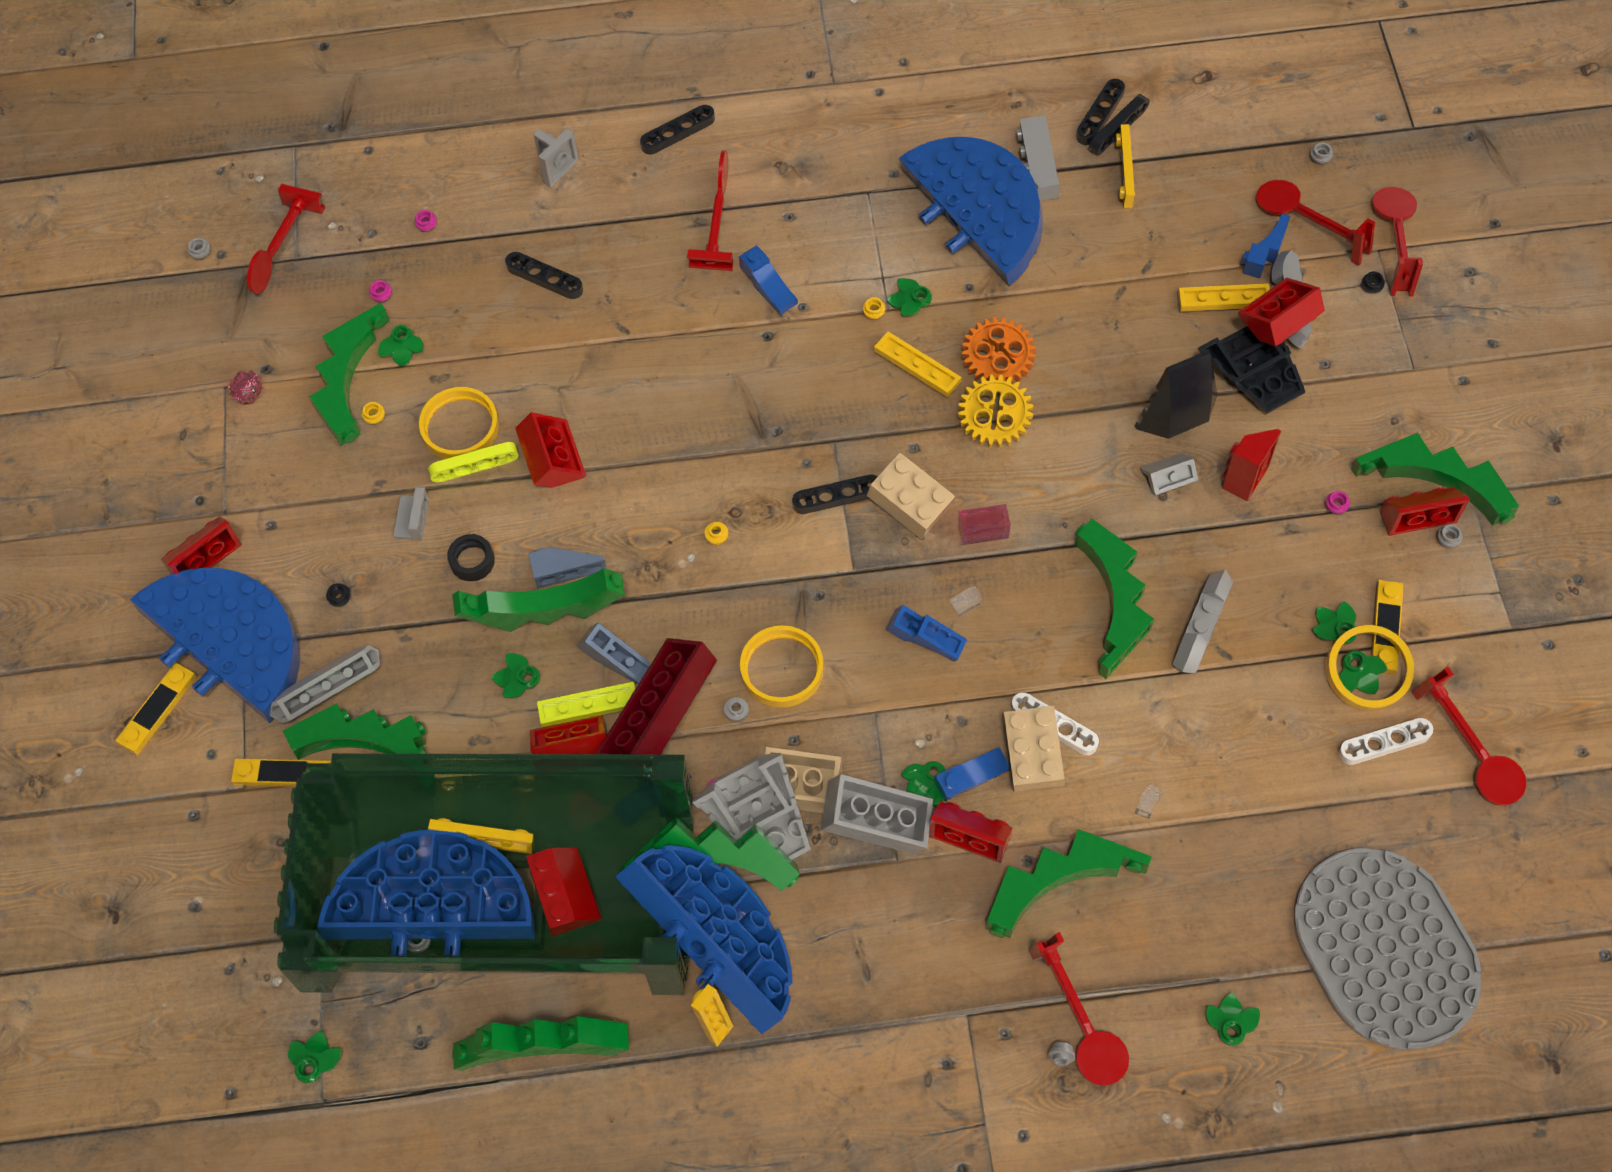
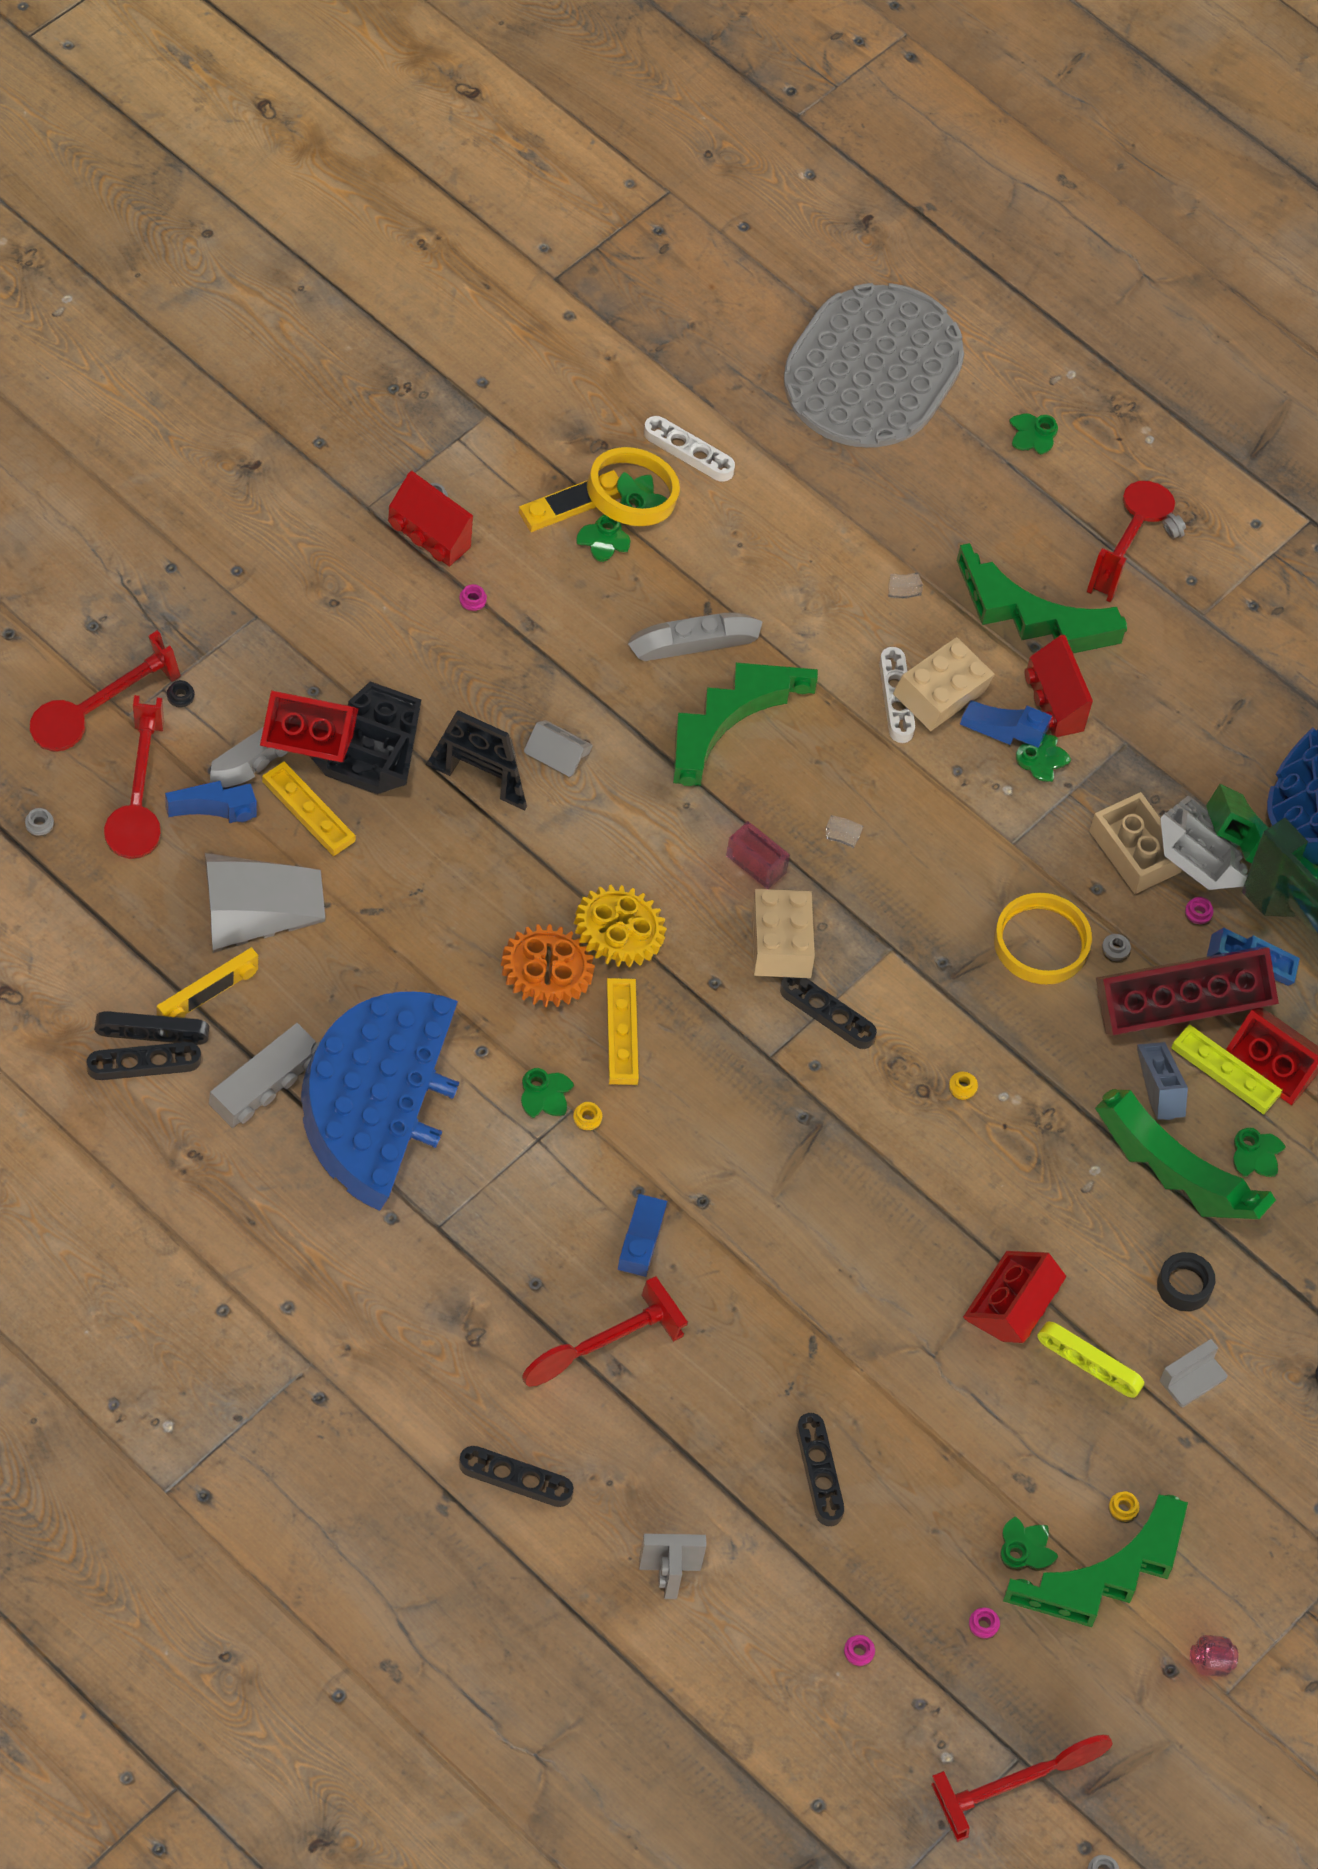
camera: 140 degrees left, 5 degrees down
(450, 395) = (1080, 1374): yellow piece -> none
(559, 565) = (1123, 1193): sand blue slope -> none
(877, 814) = (1119, 752): light grey brick -> none
(926, 632) = (908, 841): blue slope -> none
(1178, 231) = (260, 899): none -> light grey wedge
(1249, 462) = (508, 663): red slope -> none
(1413, 459) = (375, 560): green arch -> none
(1497, 777) = (650, 356): red piece -> none

